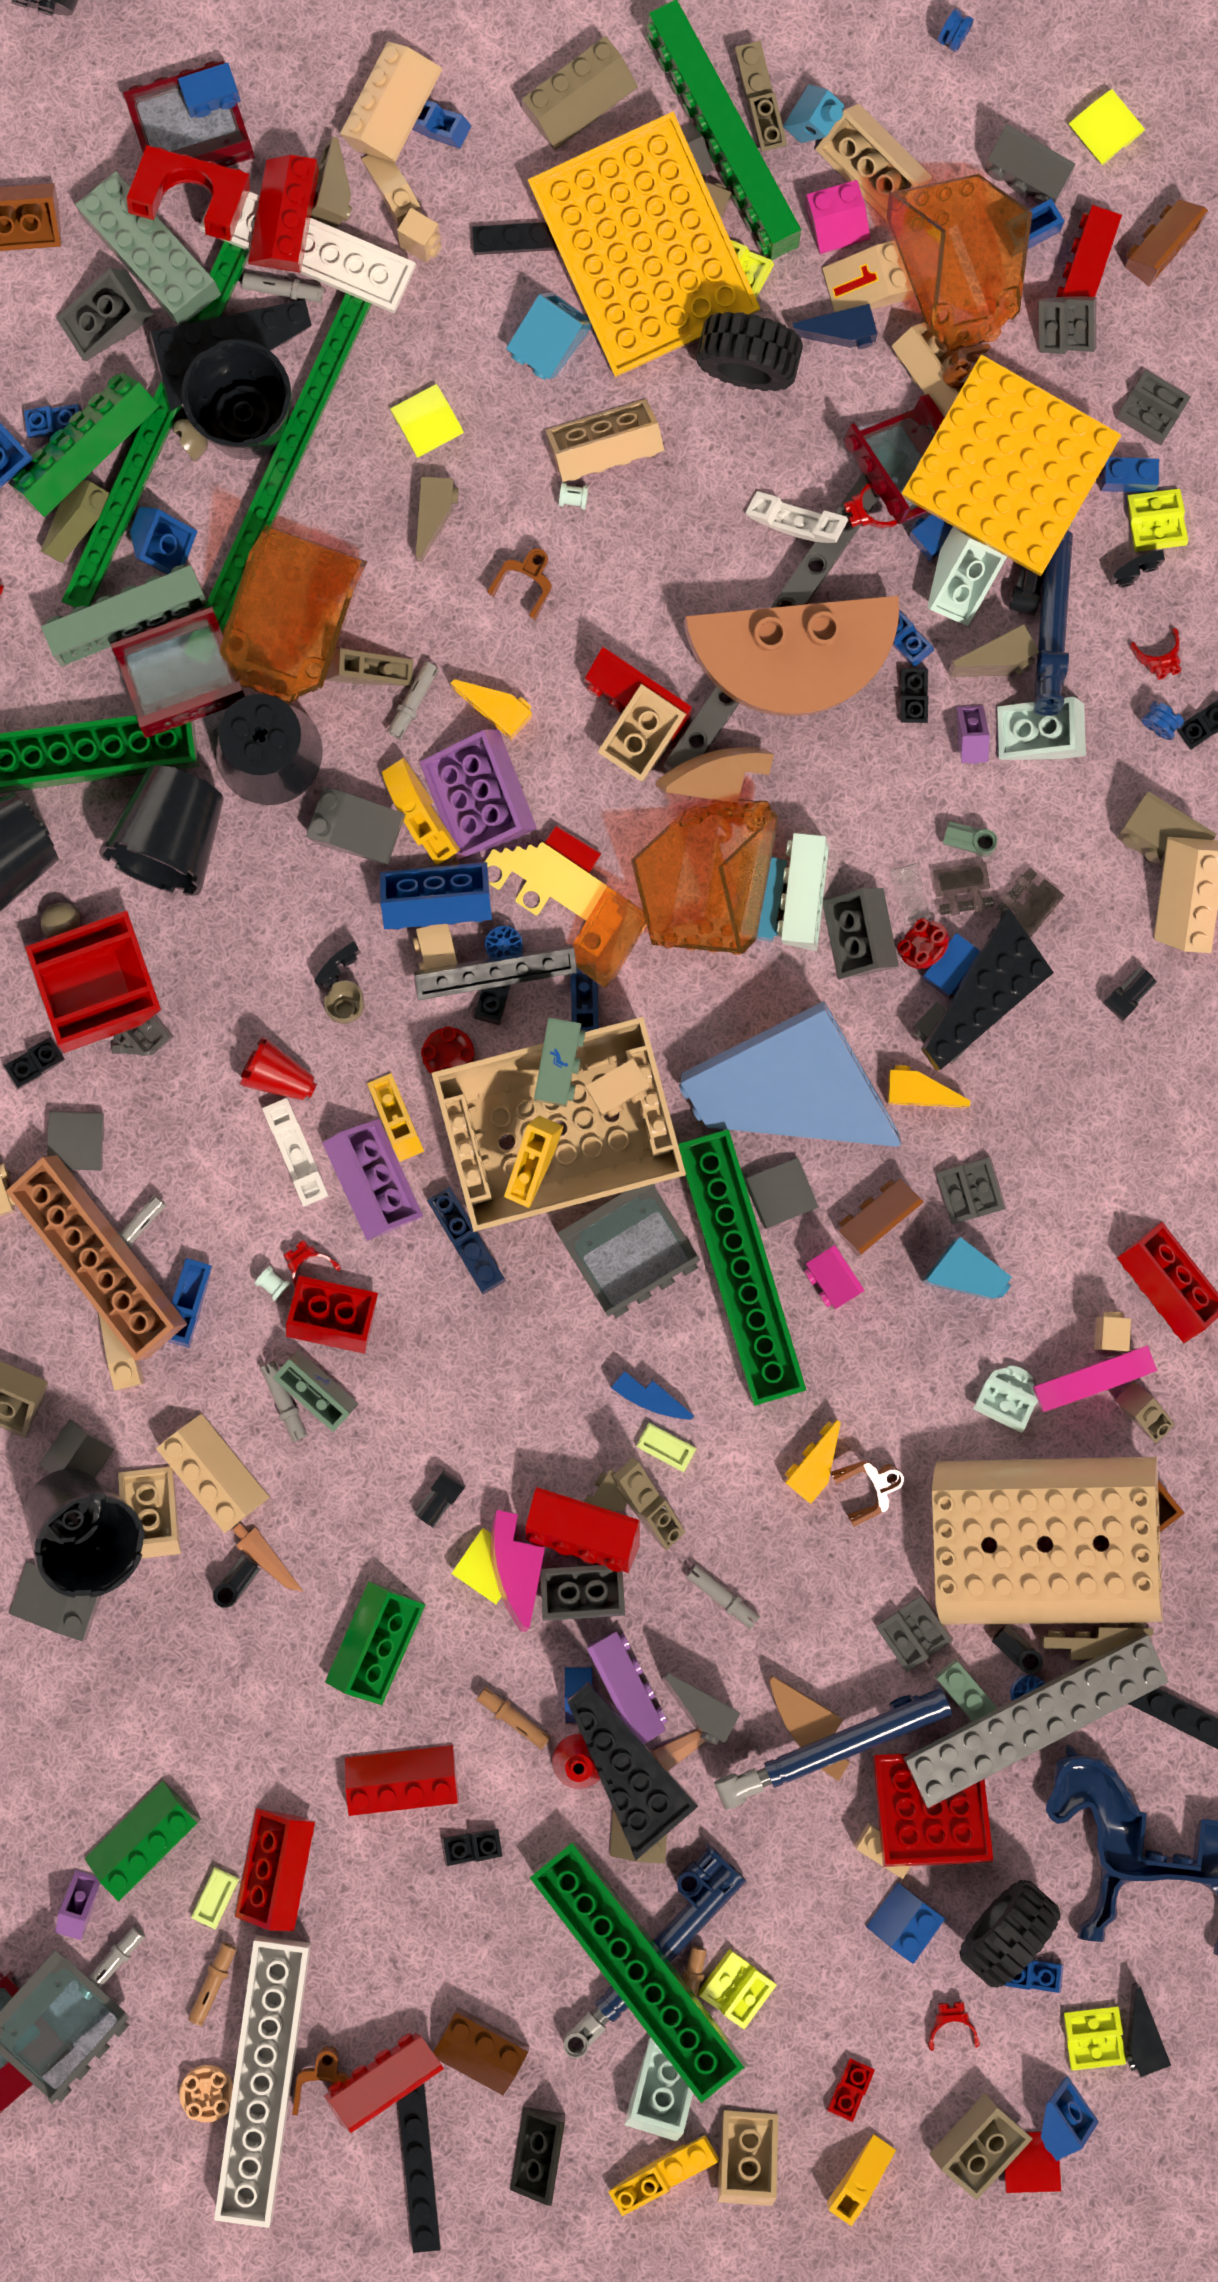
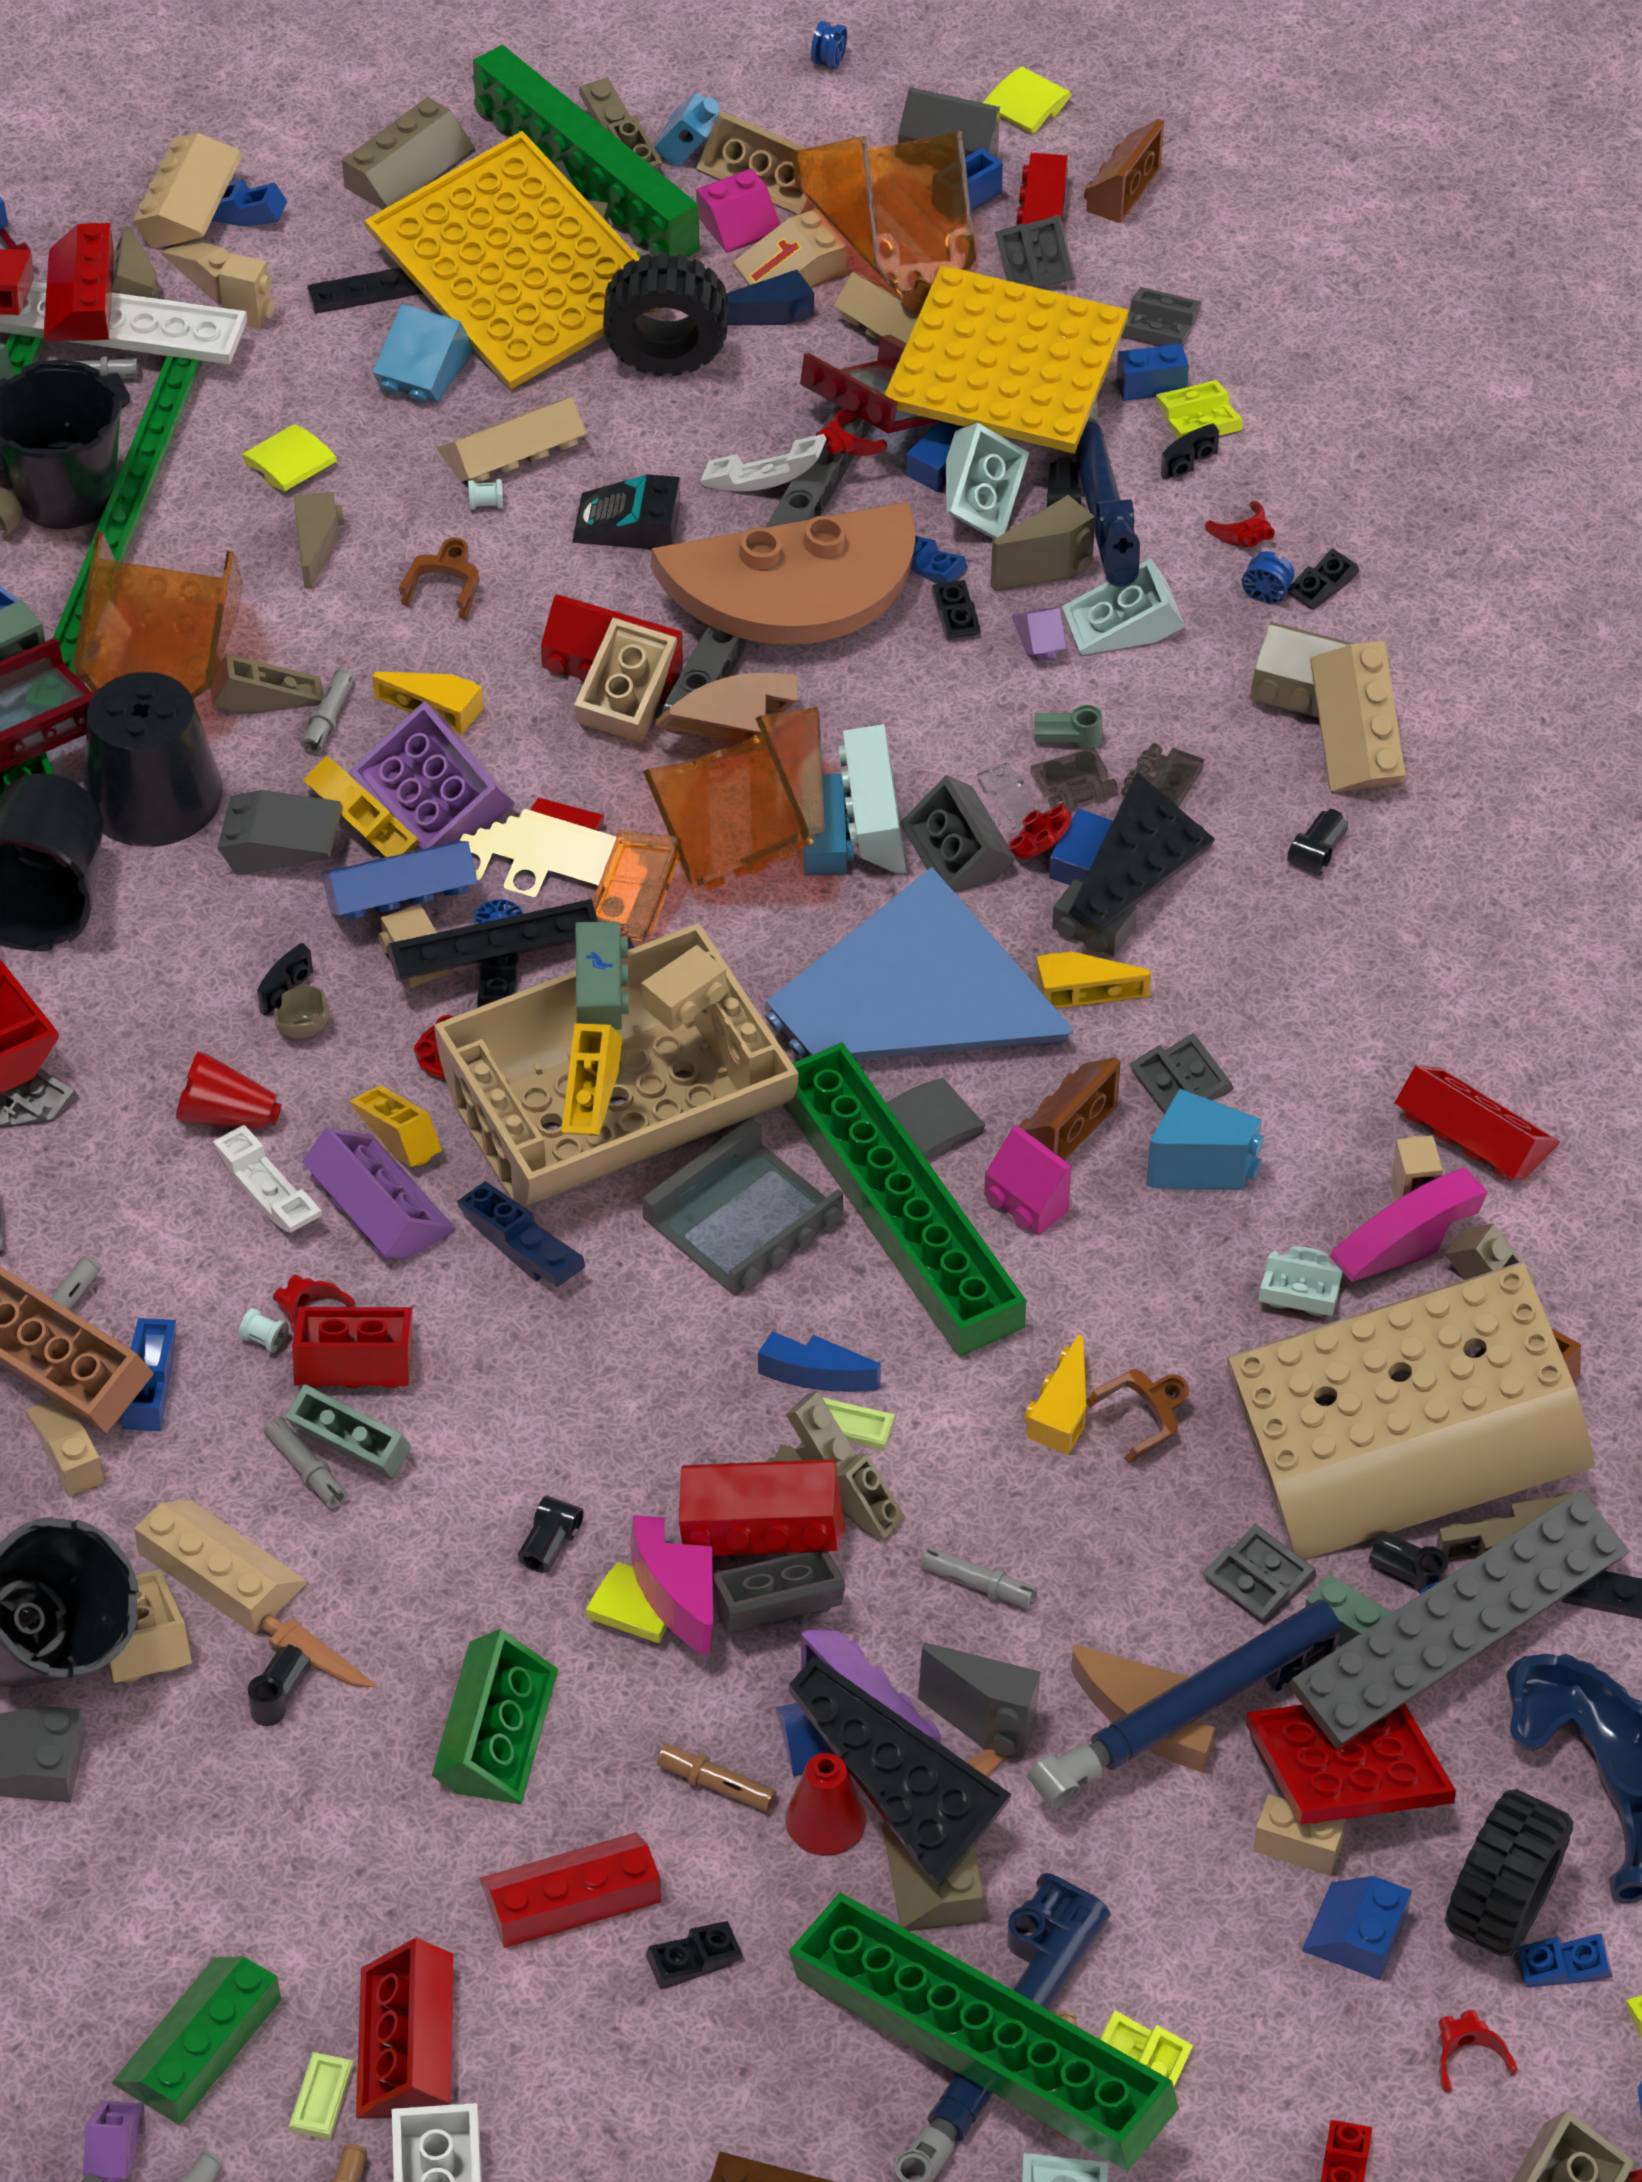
camera: 10 degrees left, 35 degrees down
(680, 541) = (630, 513): none -> black slope

